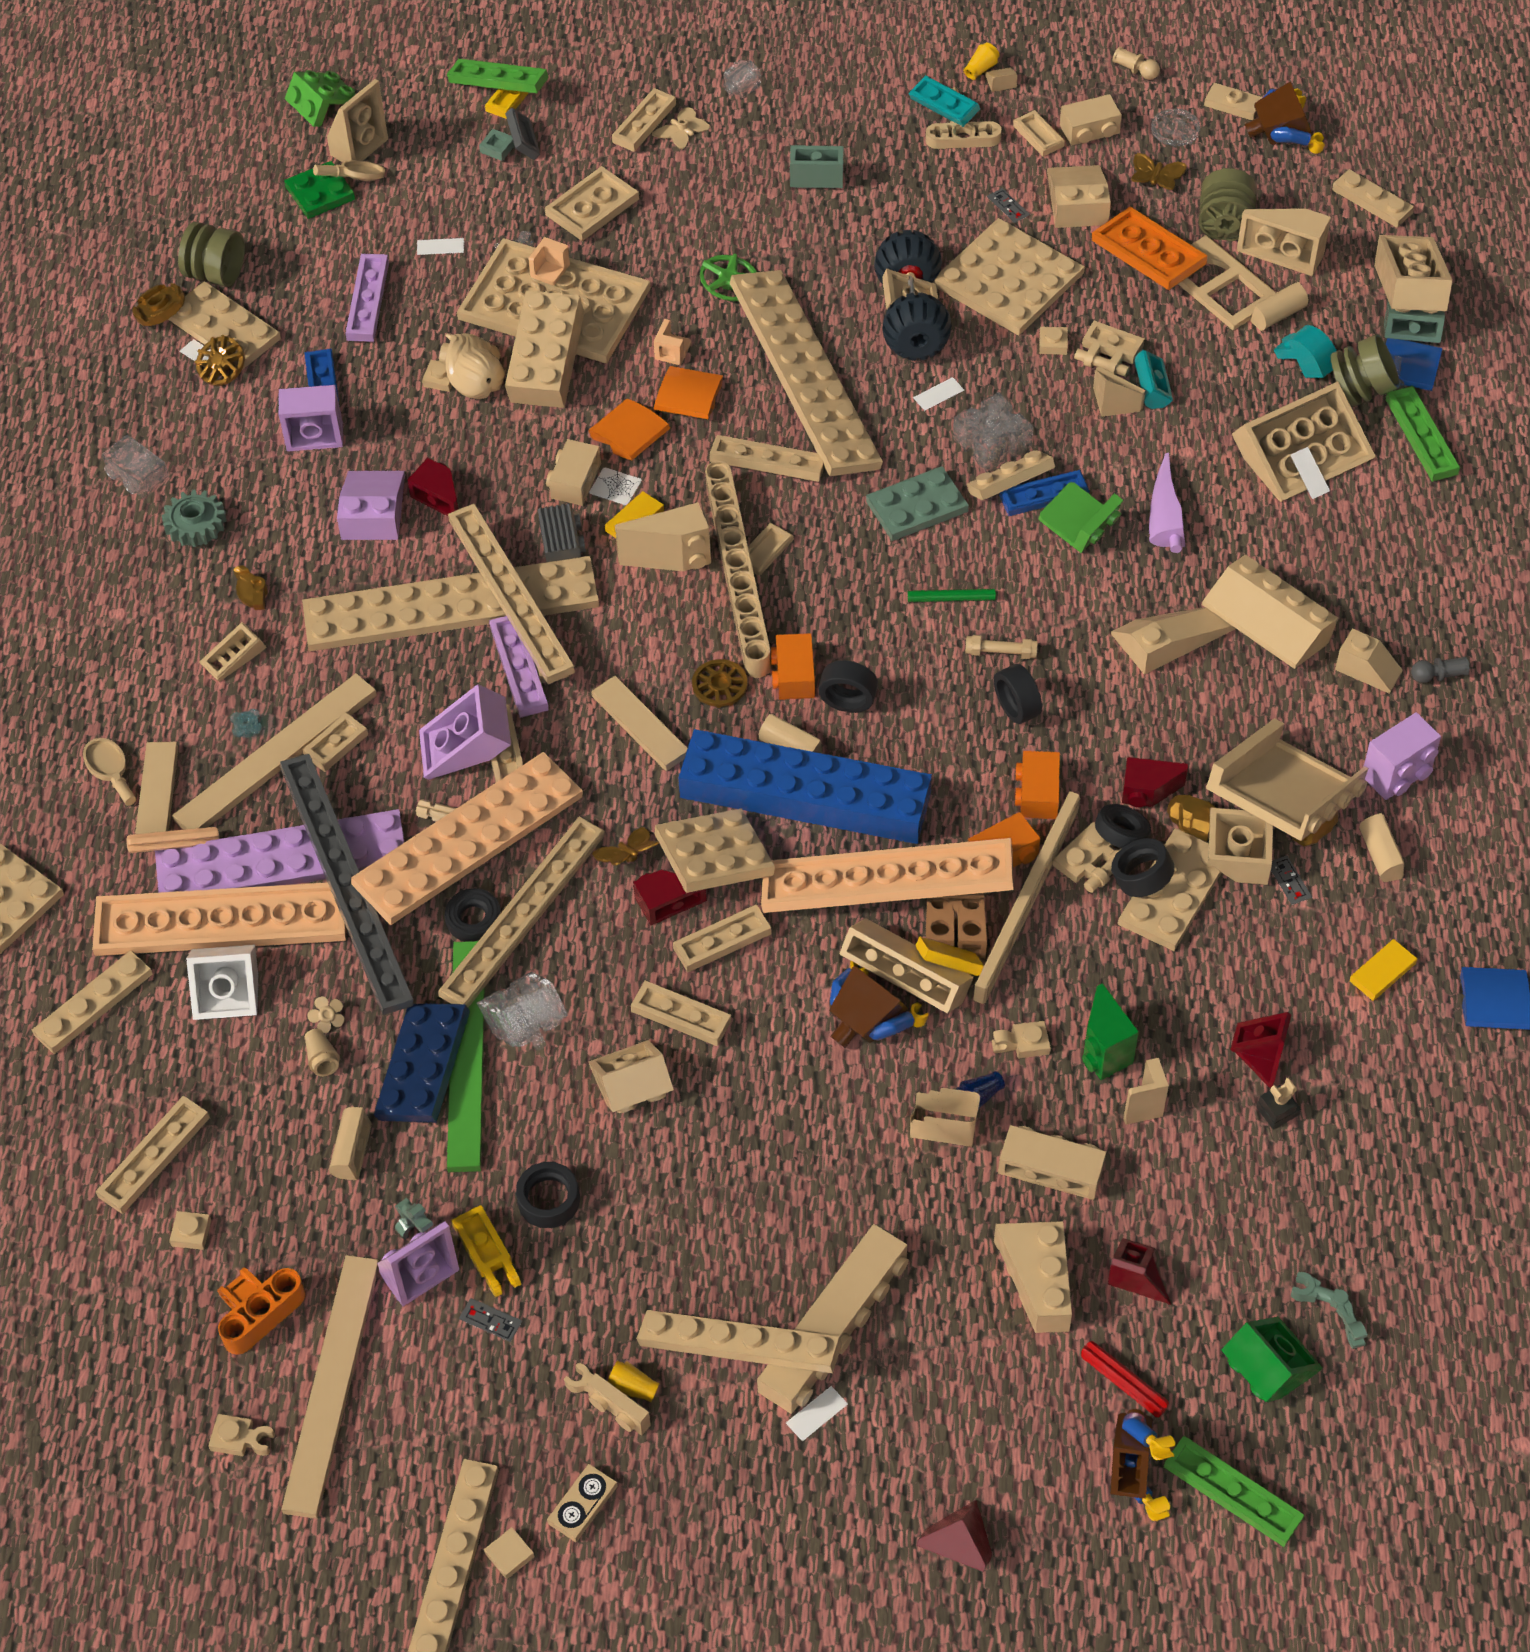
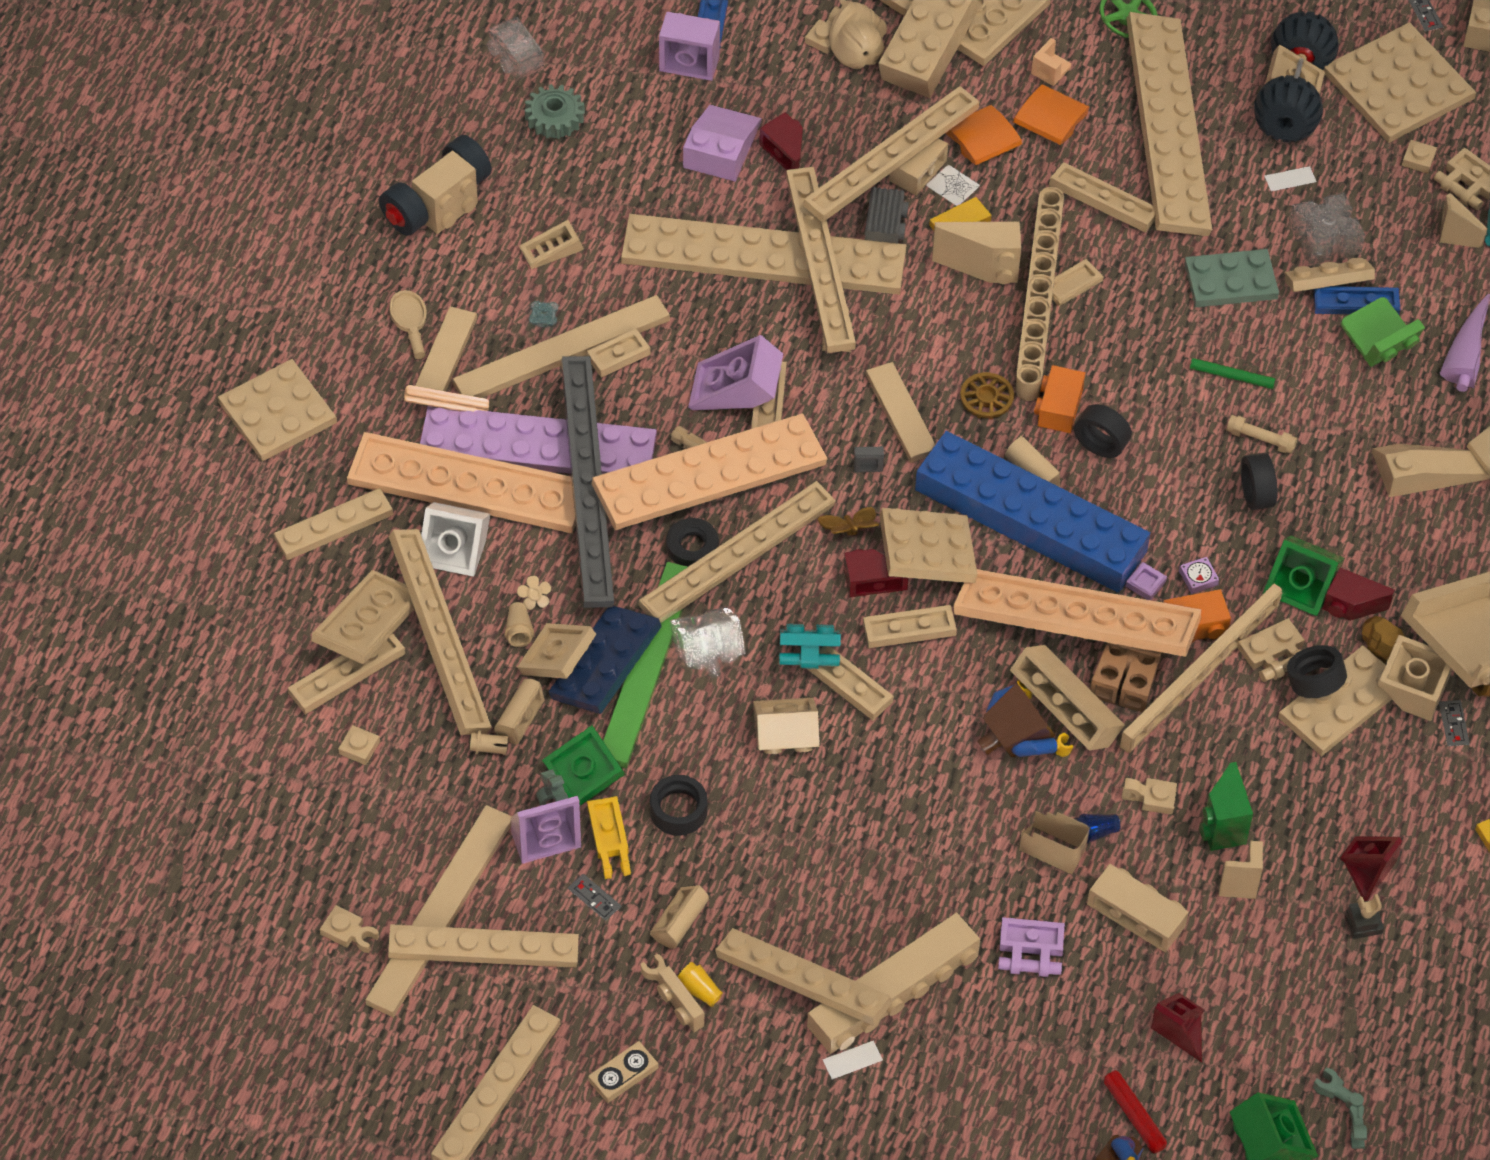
camera: 15 degrees right, 0 degrees up
(101, 629) = (440, 192): none -> brick
(158, 1091) = (365, 617): none -> tan tile
(240, 1085) = (439, 632): none -> tan plate
(247, 1296) = (392, 814): orange piece -> none
(250, 588) = (586, 191): pearl gold piece -> none
(326, 1188) = (486, 743): none -> tan pin
(369, 1068) = (556, 650): none -> tan plate
(389, 1410) = (483, 946): none -> tan plate
(437, 1182) = (584, 765): none -> green plate
(509, 1553) = (547, 1094): tan tile -> none
(518, 669) = (806, 331): lavender plate -> none
(547, 471) = (891, 154): none -> tan plate
(587, 1314) = (679, 915): none -> tan brick
(624, 779) = (868, 459): none -> dark grey tile
(629, 983) = (810, 641): none -> teal plate
(940, 824) = (1146, 581): none -> lavender tile
(949, 956) = (1108, 700): yellow tile -> none
(957, 1226) = (1032, 938): none -> lavender plate
(990, 803) = (1199, 575): none -> tile
(1038, 784) = (1249, 570): orange brick -> none
(1039, 1270) = (1091, 996): tan wedge -> none
(1093, 772) = (1304, 574): none -> green slope
(1126, 816) = (1317, 619): black tyre -> none

